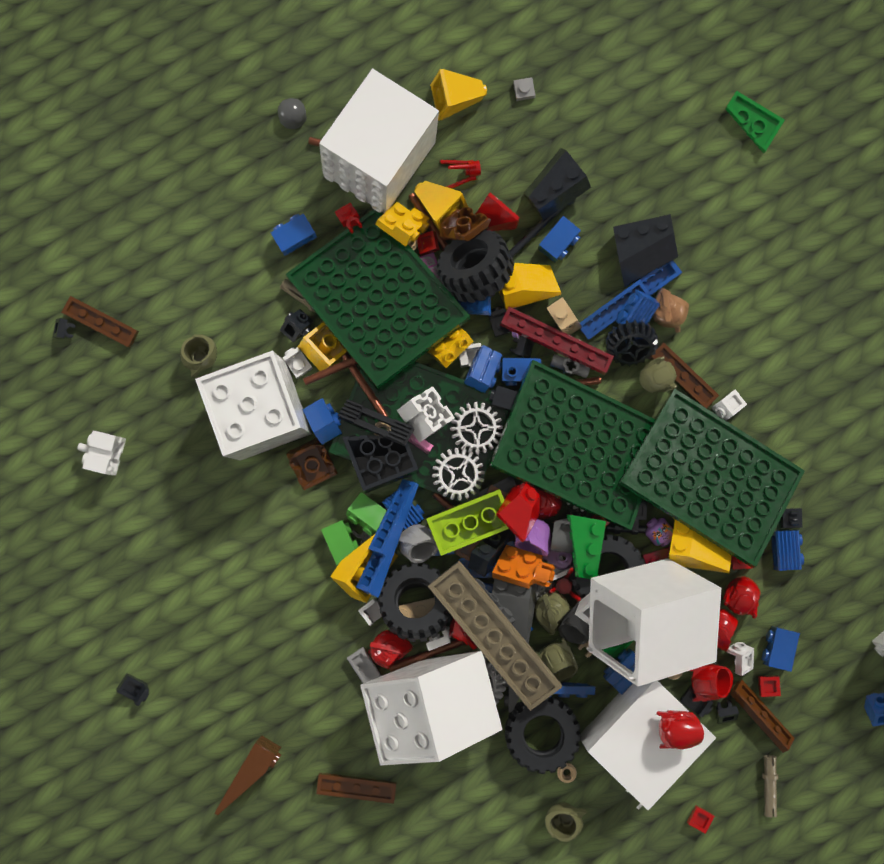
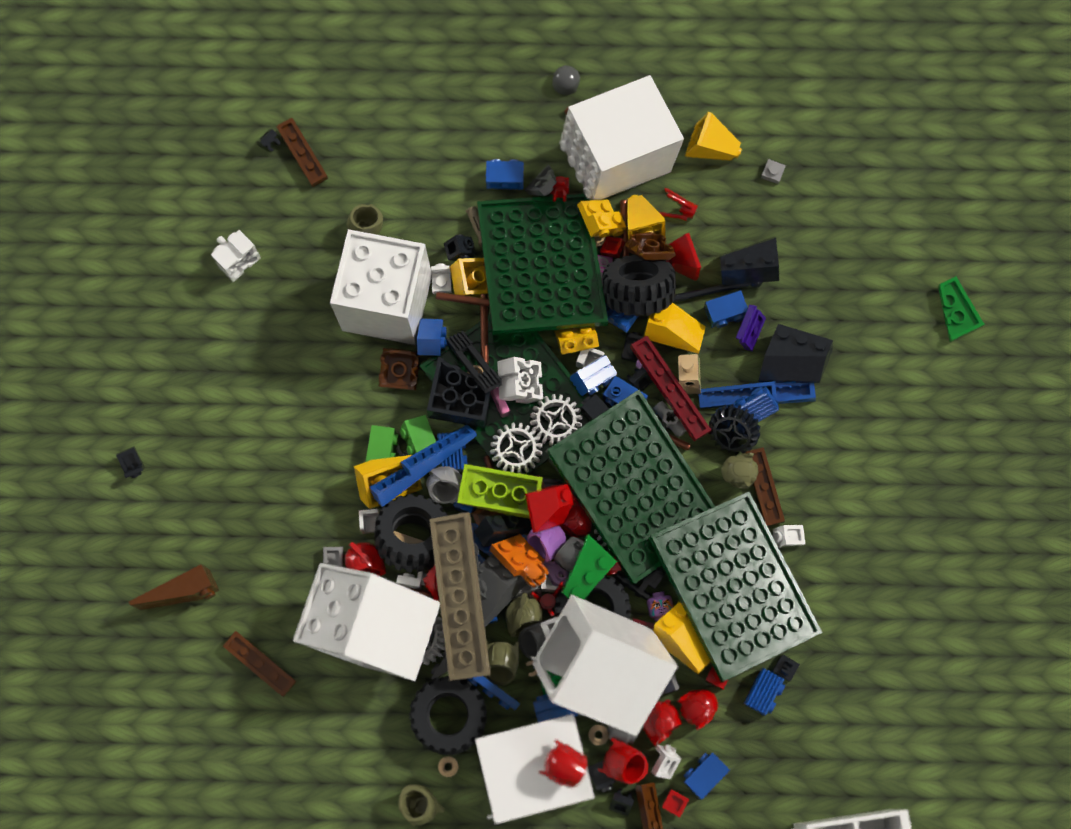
camera: 30 degrees right, 10 degrees down
(332, 221) = (543, 183): none -> dark grey wing
(590, 243) = (751, 328): none -> dark purple plate
(671, 311) = (785, 423): medium nougat helmet -> none

